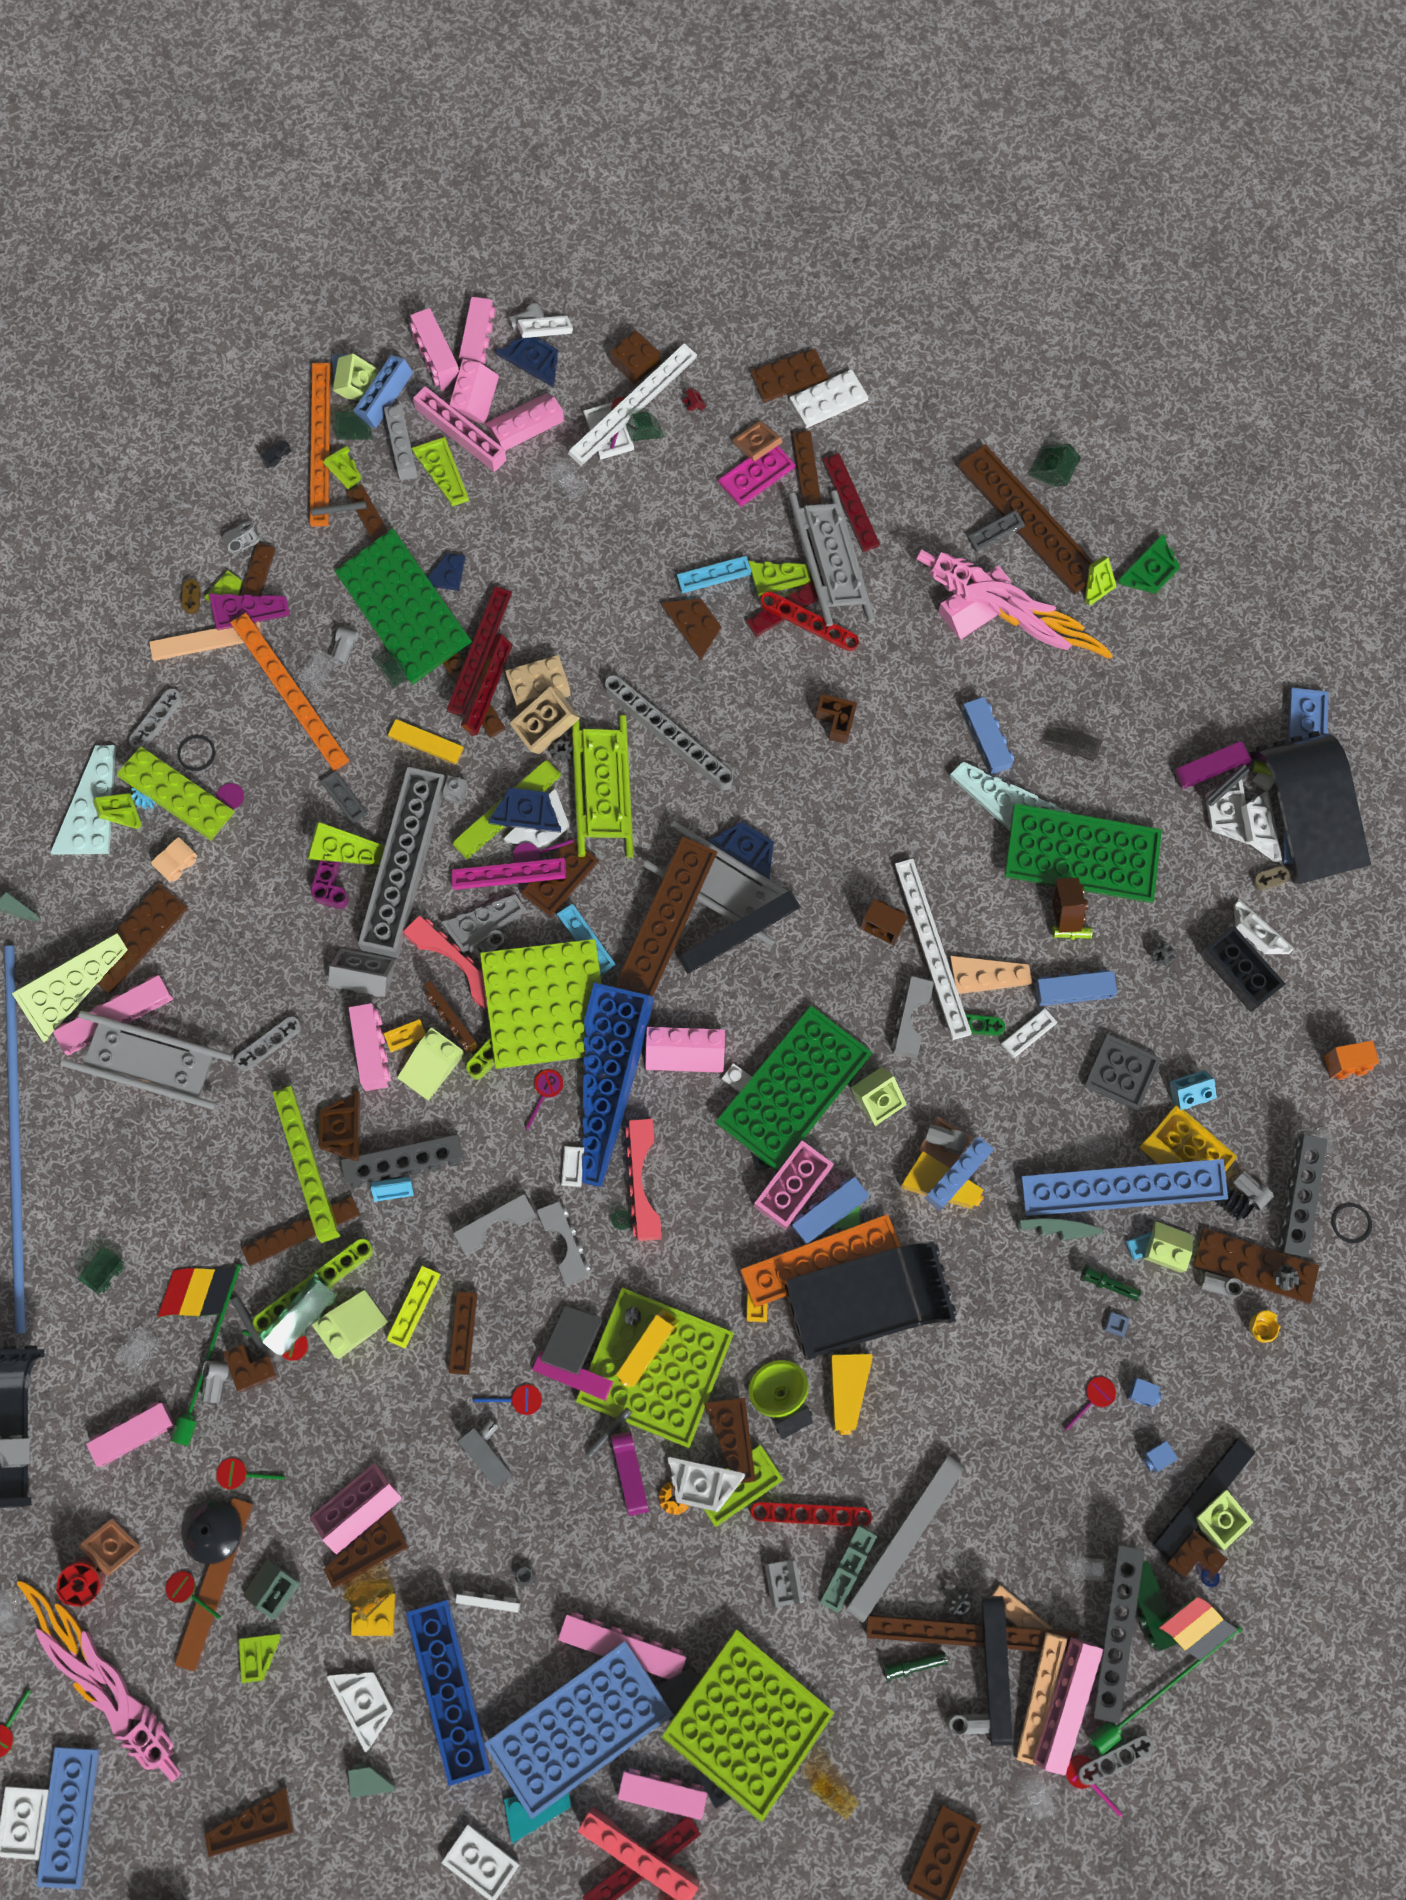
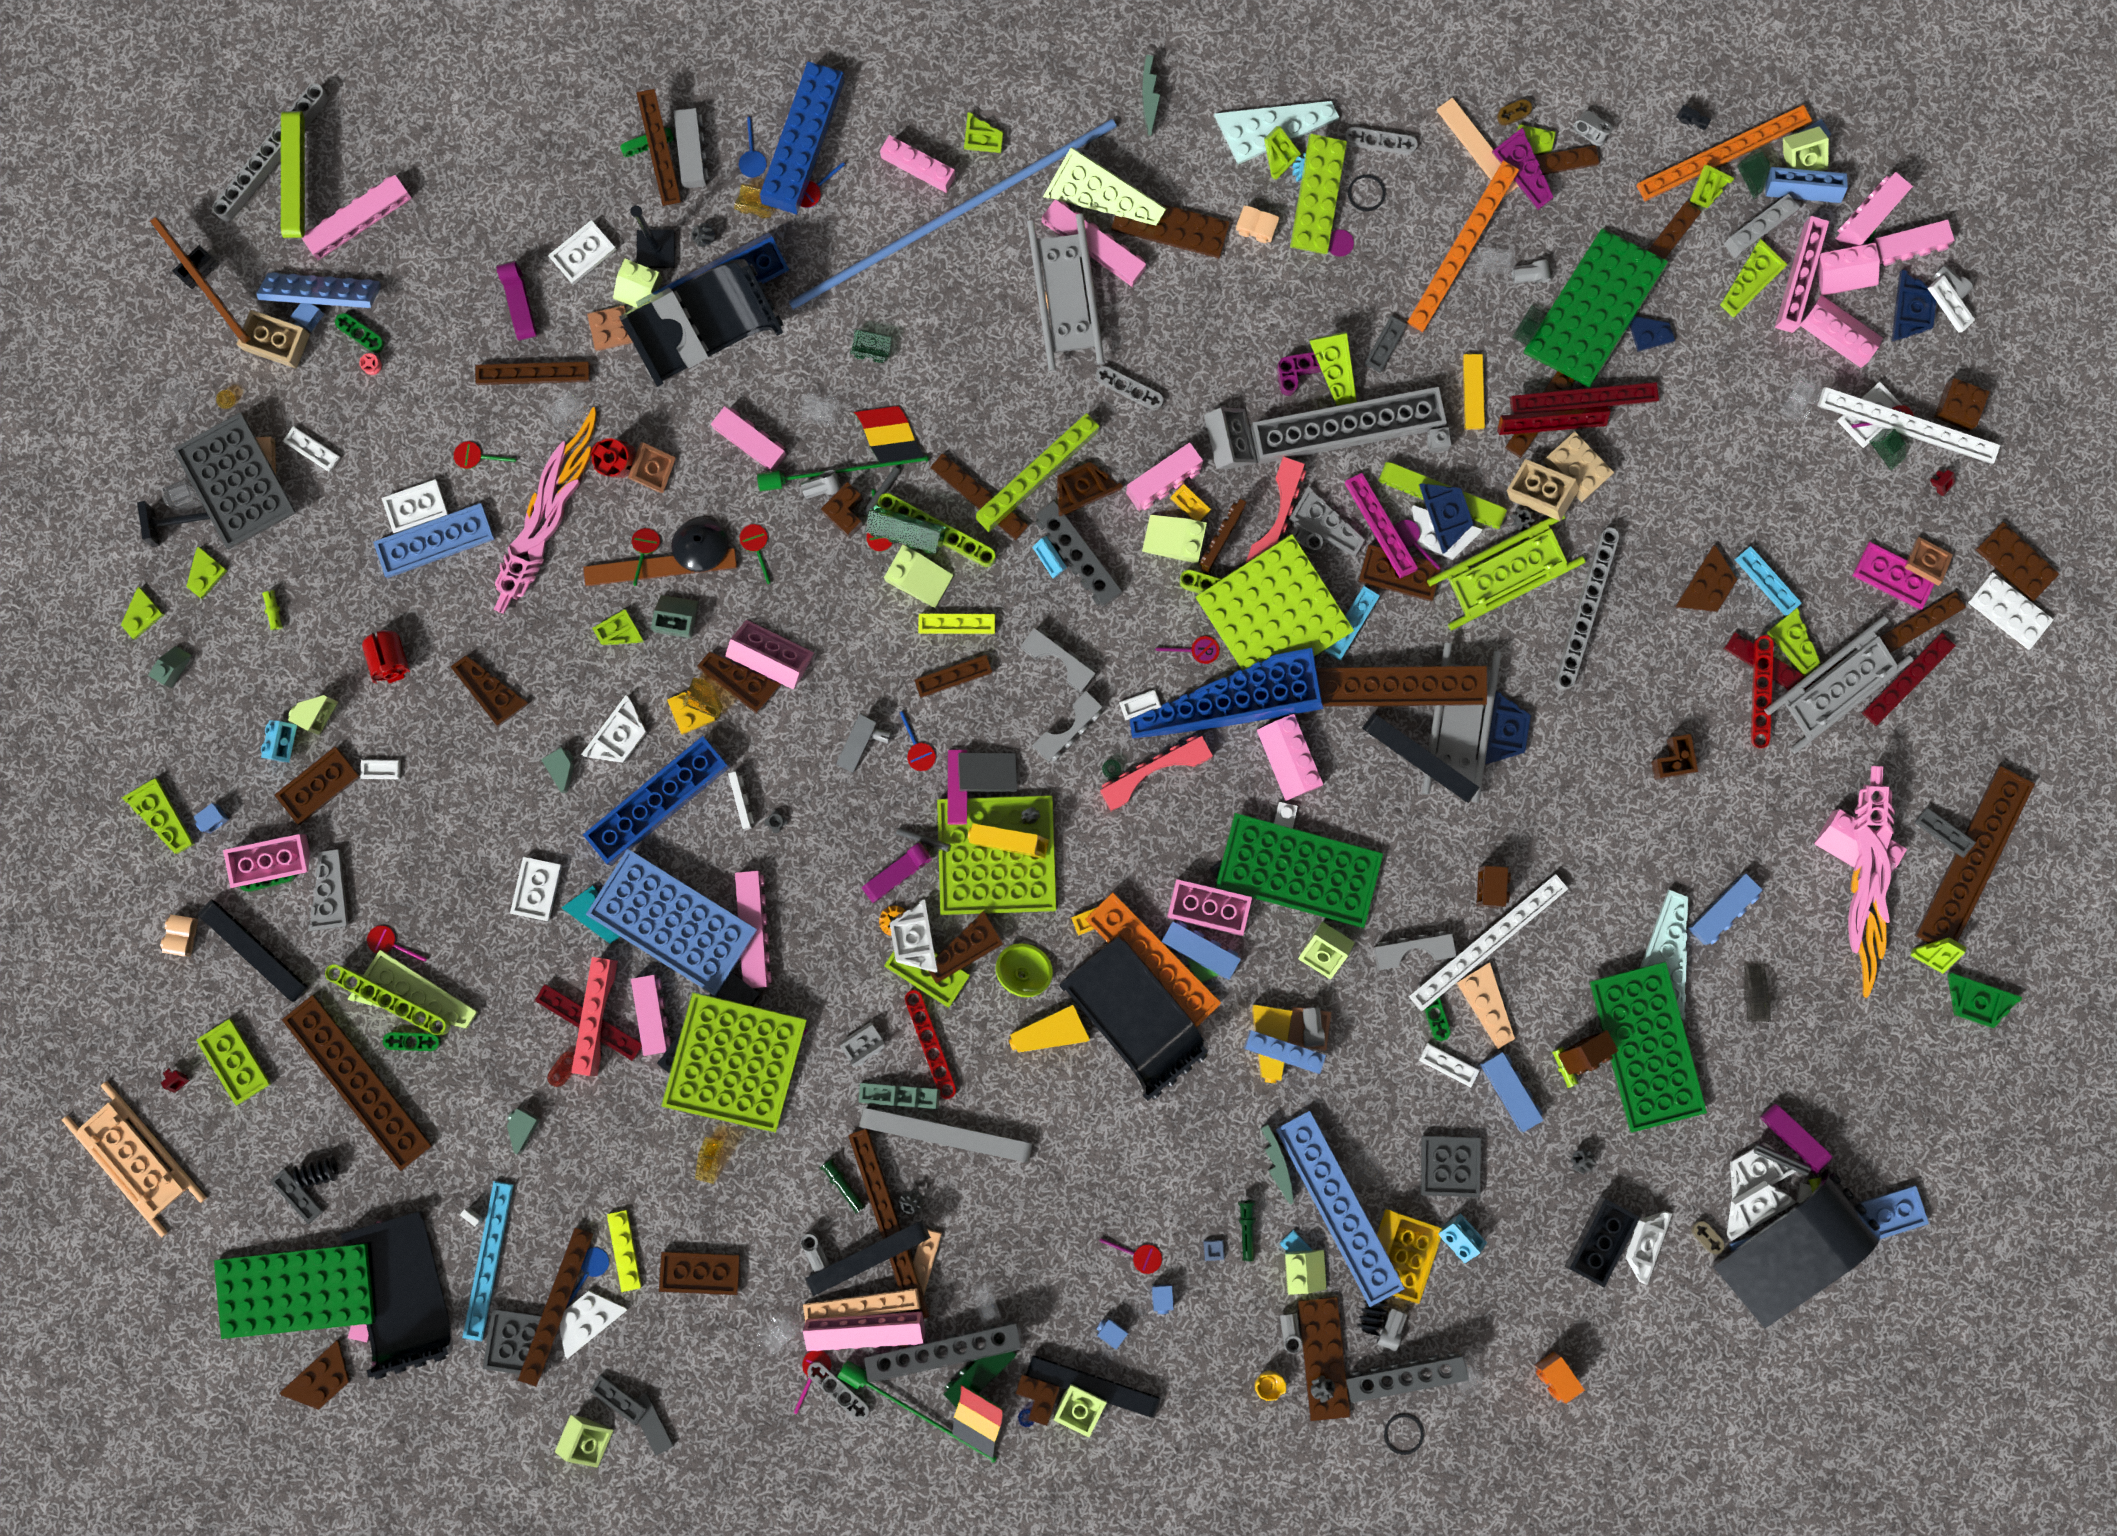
camera: 70 degrees right, 10 degrees up
(338, 508) = (1665, 202): dark grey bar -> none
(794, 1422) = (1001, 996): black piece -> none
(1055, 464) = (2046, 862): clear green slope -> none

